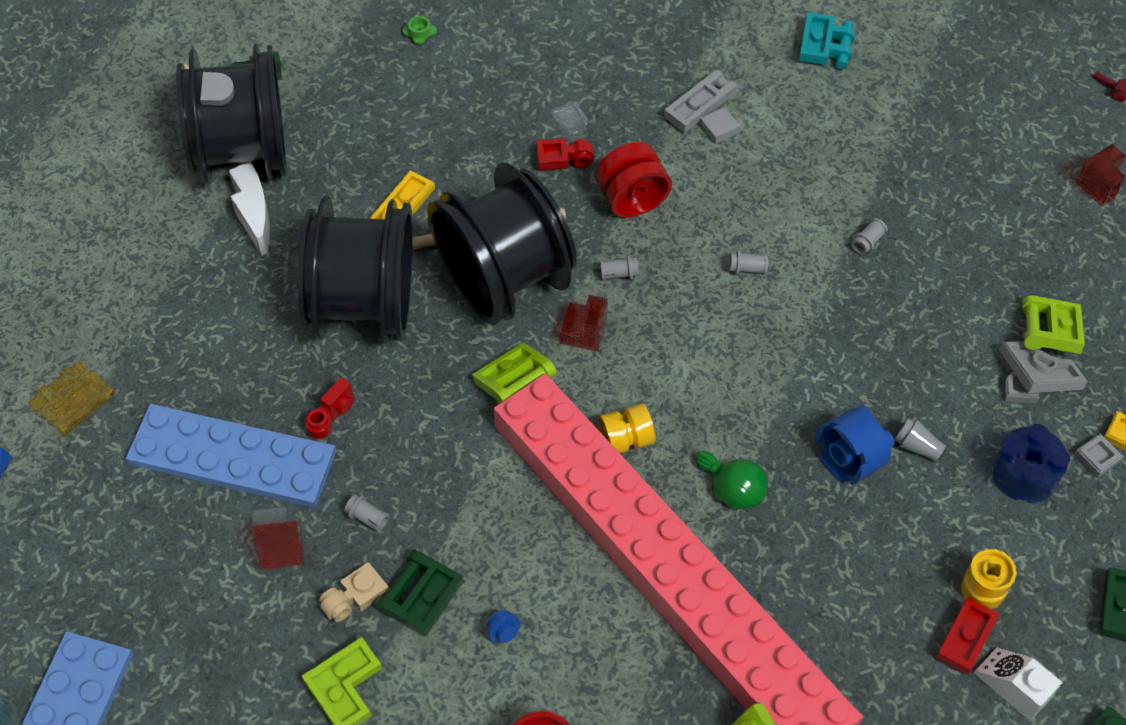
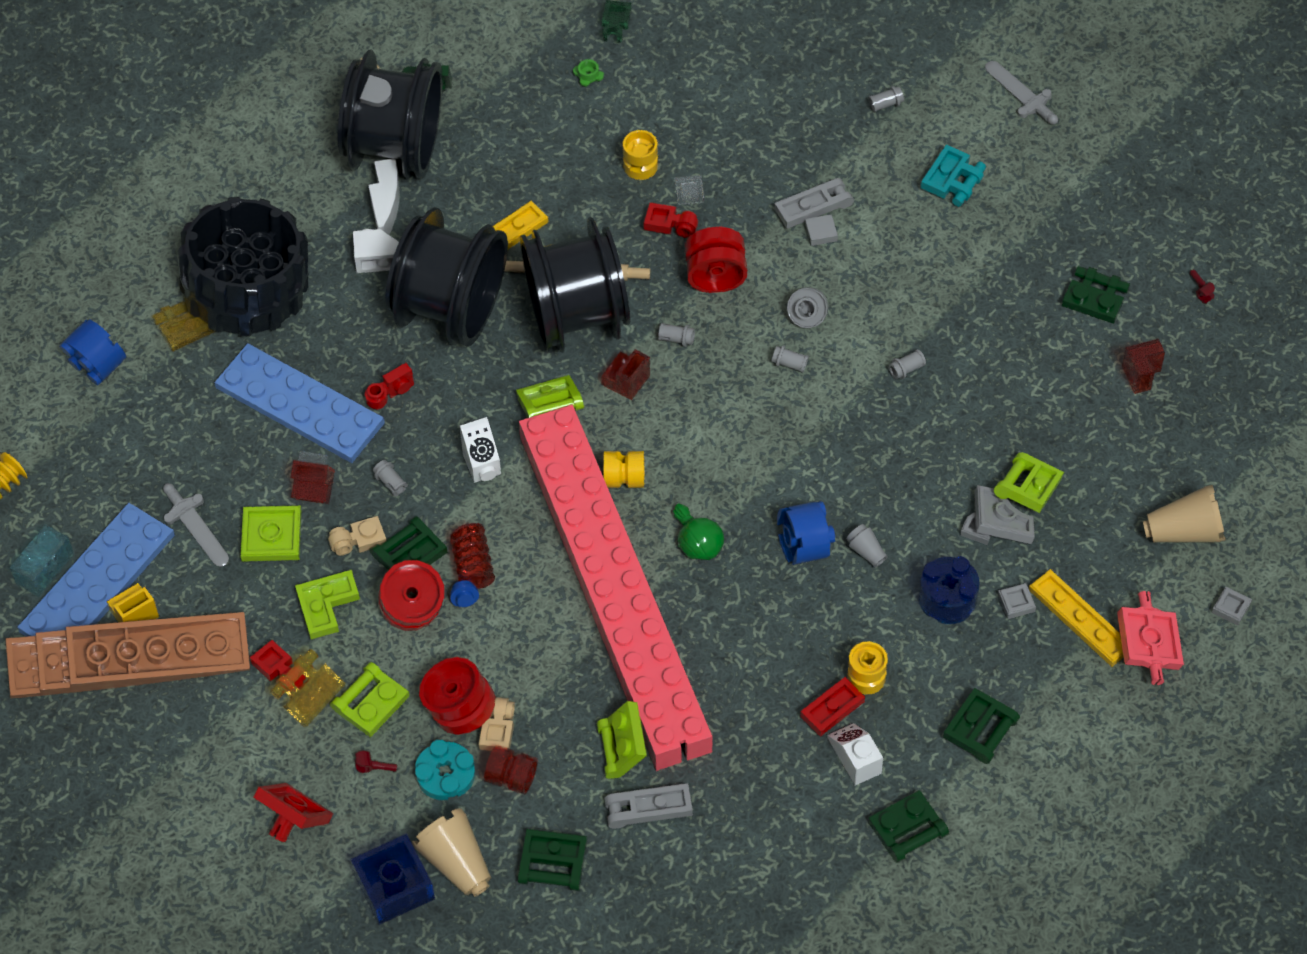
camera: 20 degrees right, 0 degrees up
(119, 318) = (250, 266): none -> black wheel
(137, 621) = (185, 510): none -> light grey sword
(250, 619) = (271, 533): none -> lime plate
(264, 264) = (373, 250): none -> white slope
(461, 453) = (480, 450): none -> white slope
(464, 638) = (407, 612): none -> red wheel
(494, 580) = (472, 555): none -> clear red piece
(508, 95) = (640, 154): none -> yellow wheel
(745, 204) = (807, 307): none -> light grey plate
(1017, 126) = (1094, 301): none -> dark green plate

